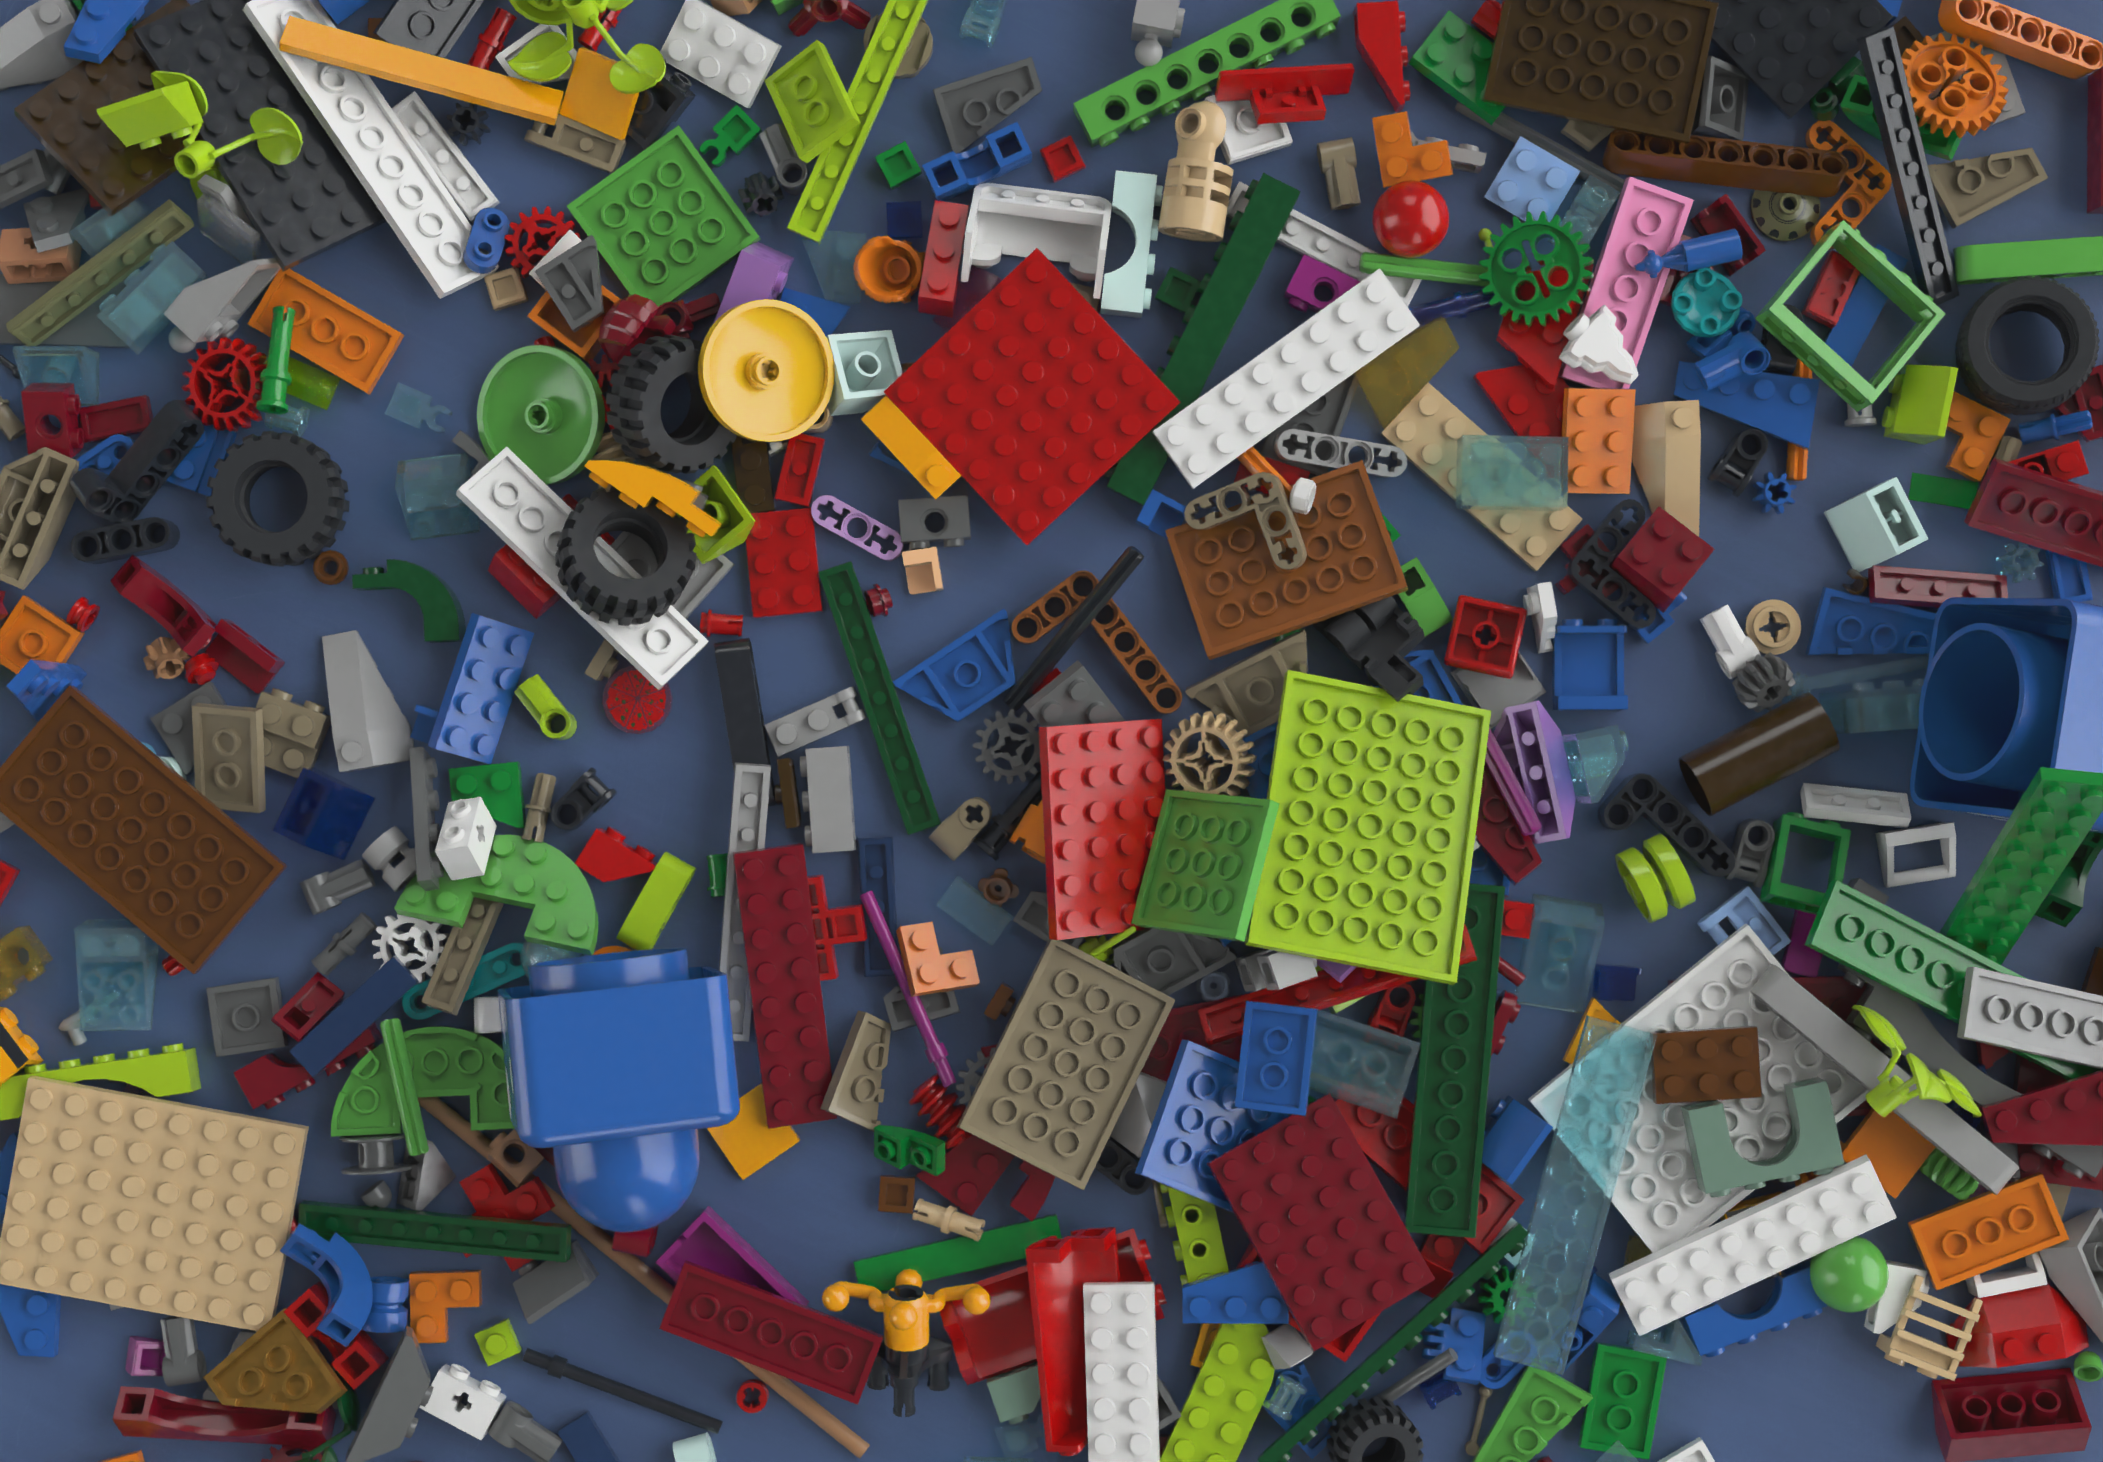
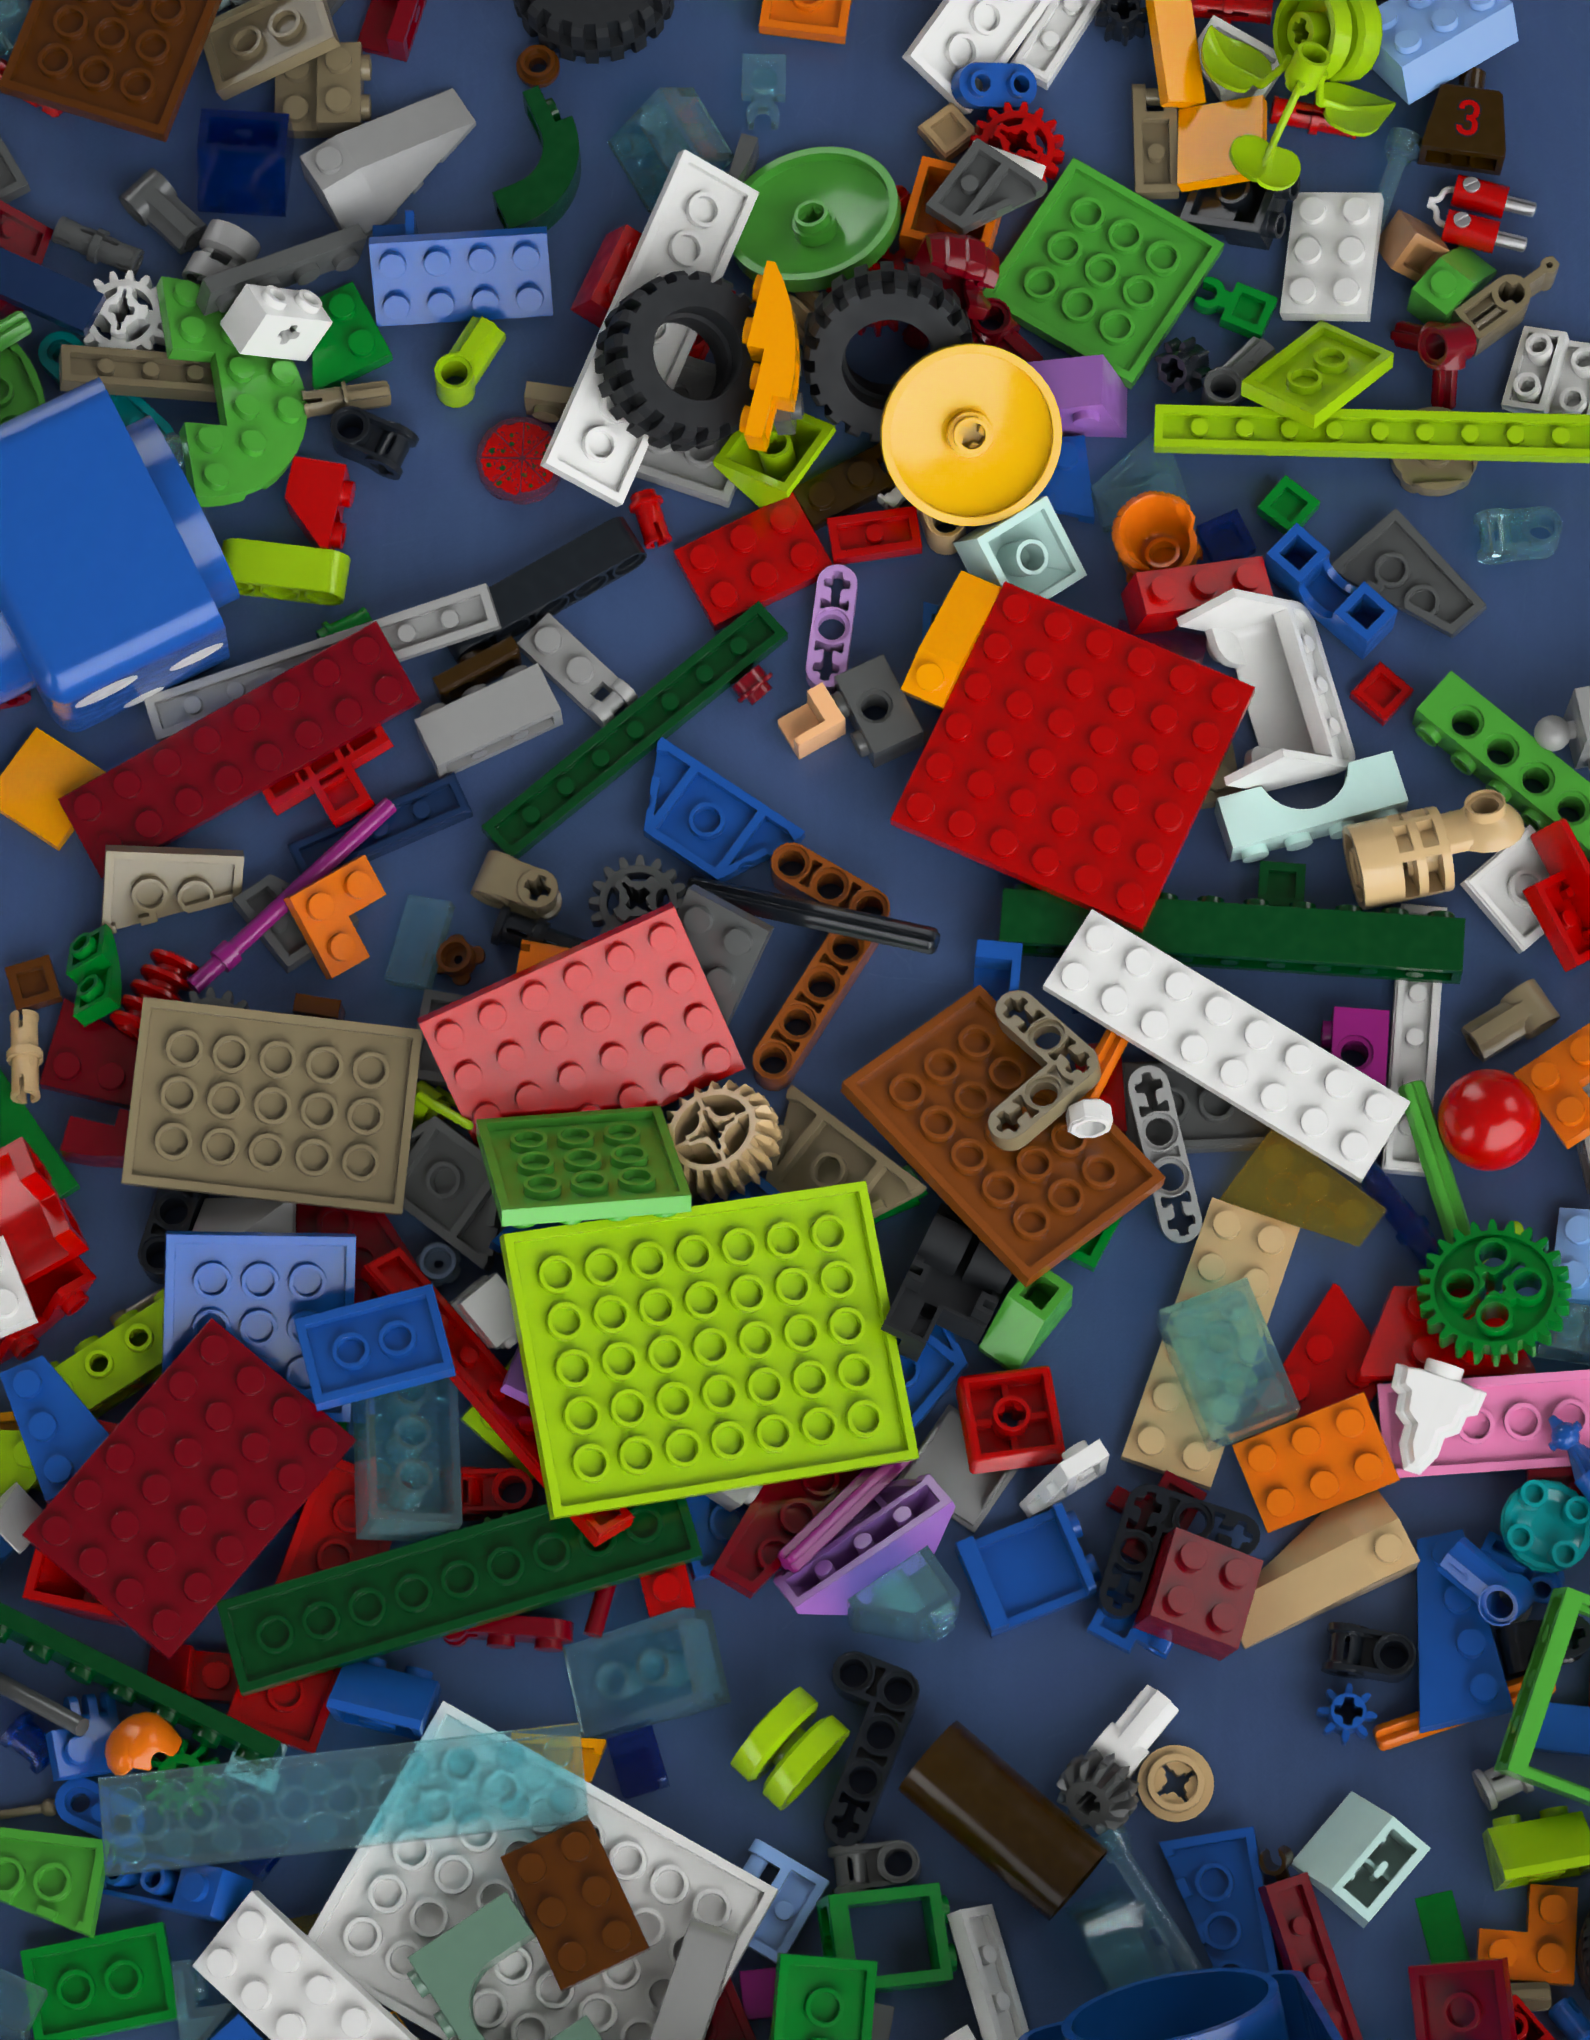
camera: 65 degrees right, 15 degrees down
(1480, 1318) = (137, 1741): none -> orange hair

